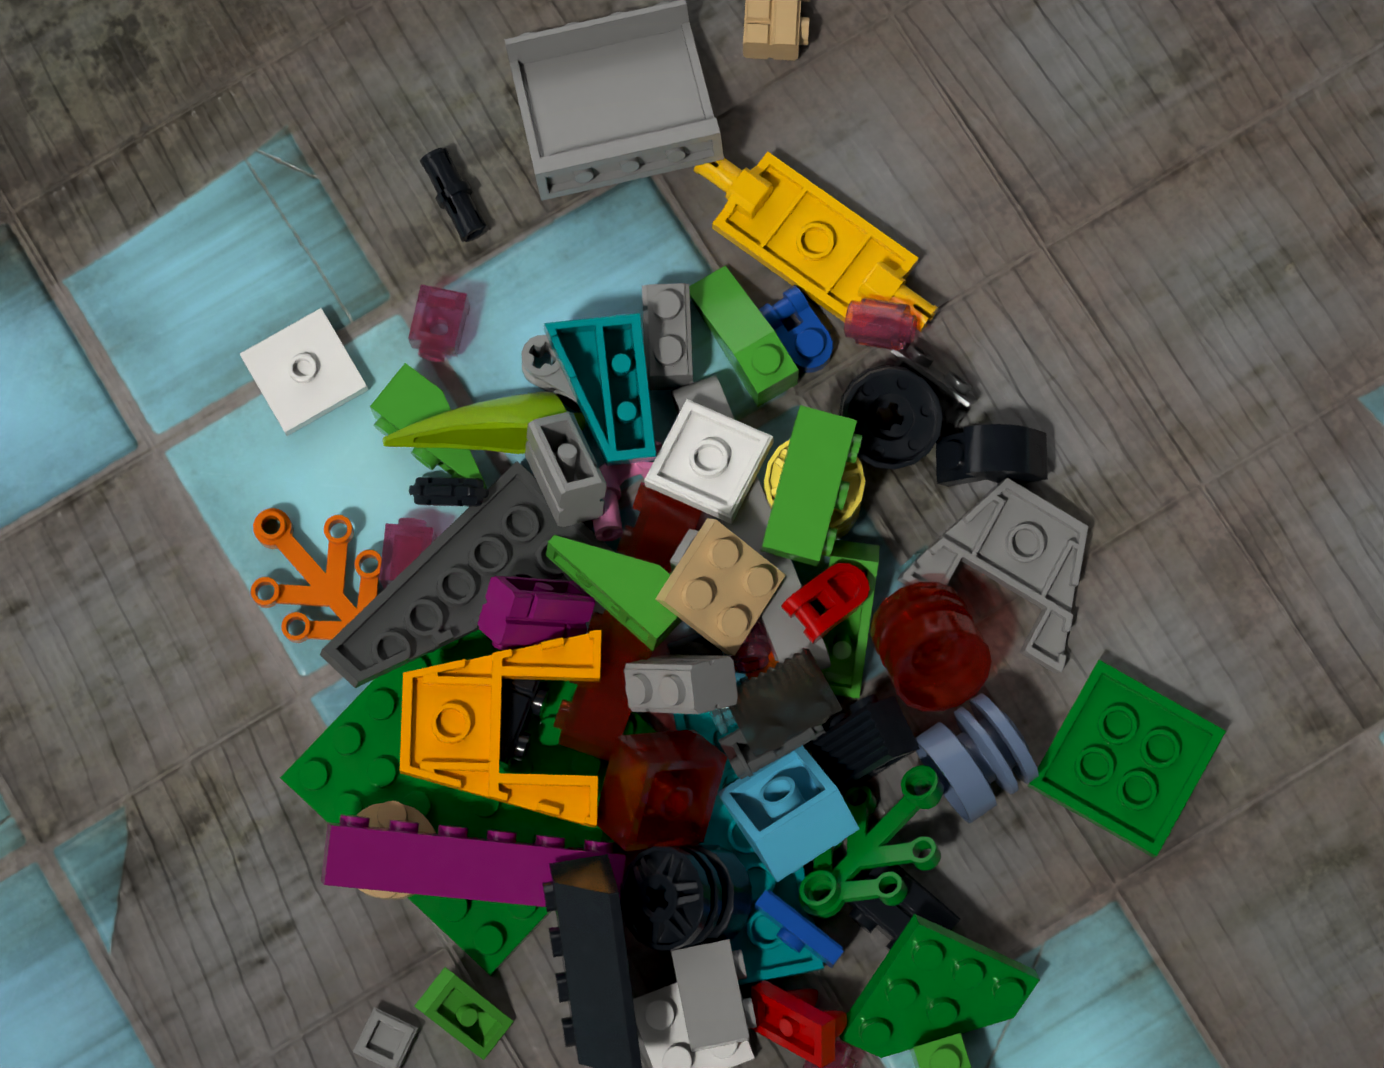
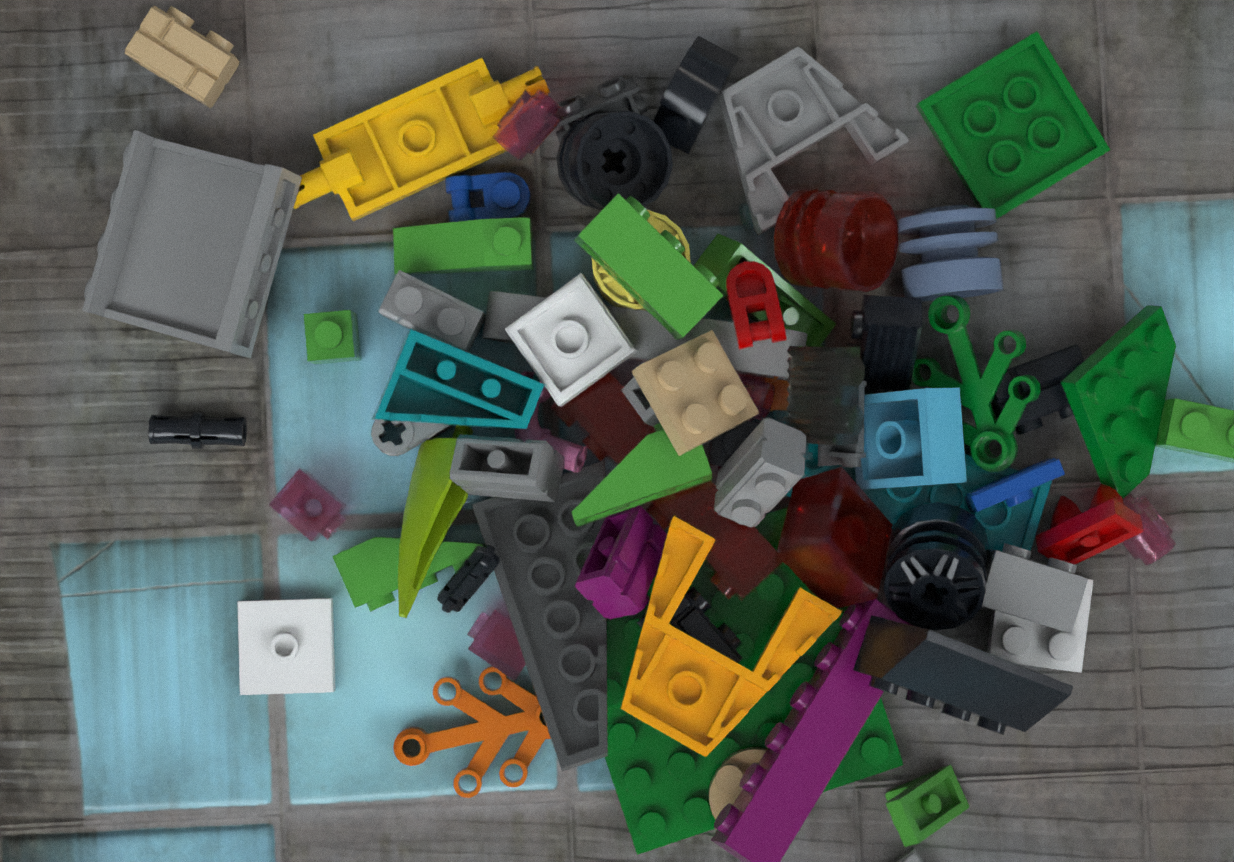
camera: 60 degrees left, 10 degrees up
(599, 262) = (332, 337): none -> bright green brick

